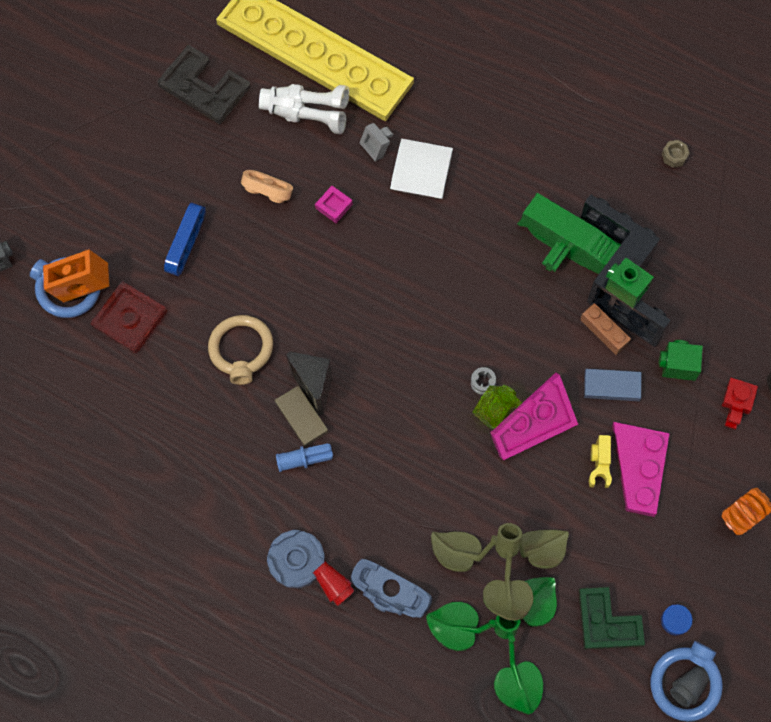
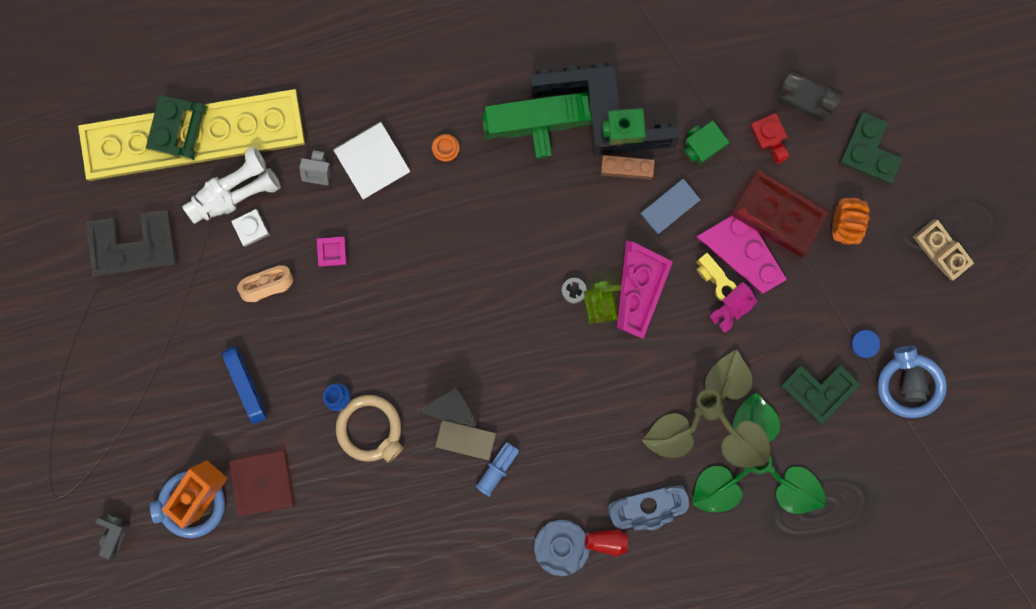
camera: 40 degrees left, 15 degrees up
(239, 303) = (336, 397): none -> blue plate
(293, 143) = (250, 228): none -> white plate
(304, 29) = (168, 125): none -> dark green plate
(482, 204) = (445, 147): none -> orange plate
(599, 498) = (736, 305): none -> dark pink plate
(694, 460) = (780, 214): none -> clear red tile

